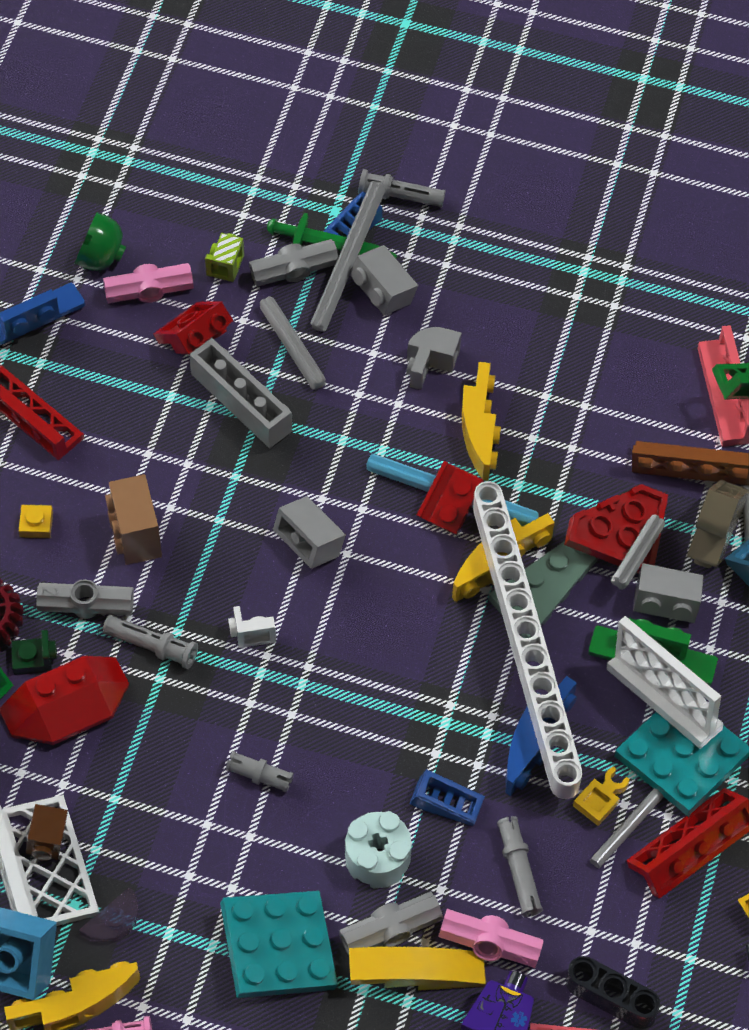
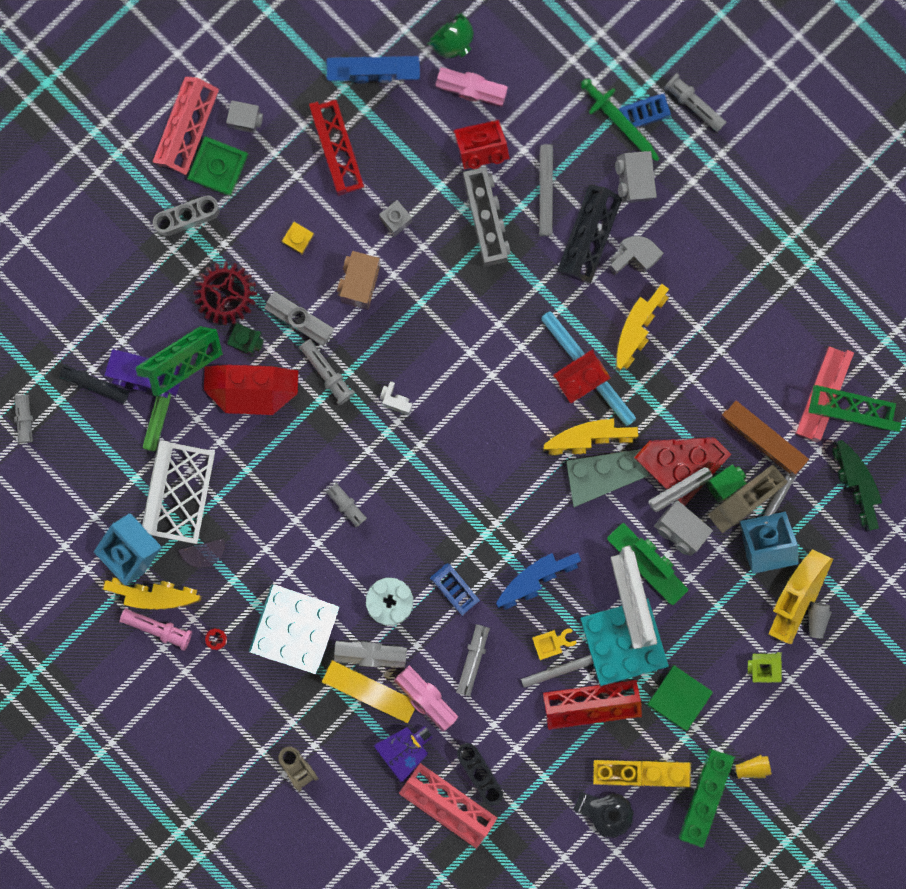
camera: 25 degrees right, 25 degrees up
(46, 832) = (188, 478): reddish brown brick -> none
(139, 444) = (395, 218): none -> light grey brick
(196, 1016) = (219, 645): none -> red bush
(225, 257) = (537, 94): lime brick -> none
(293, 262) = (582, 125): light grey piece -> none
(309, 532) = (472, 351): light grey brick -> none
(348, 256) = (623, 142): light grey axle -> none
(361, 358) = (586, 230): none -> black fence
(530, 648) = (572, 503): white beam -> none
(682, 520) = (726, 483): none -> green brick

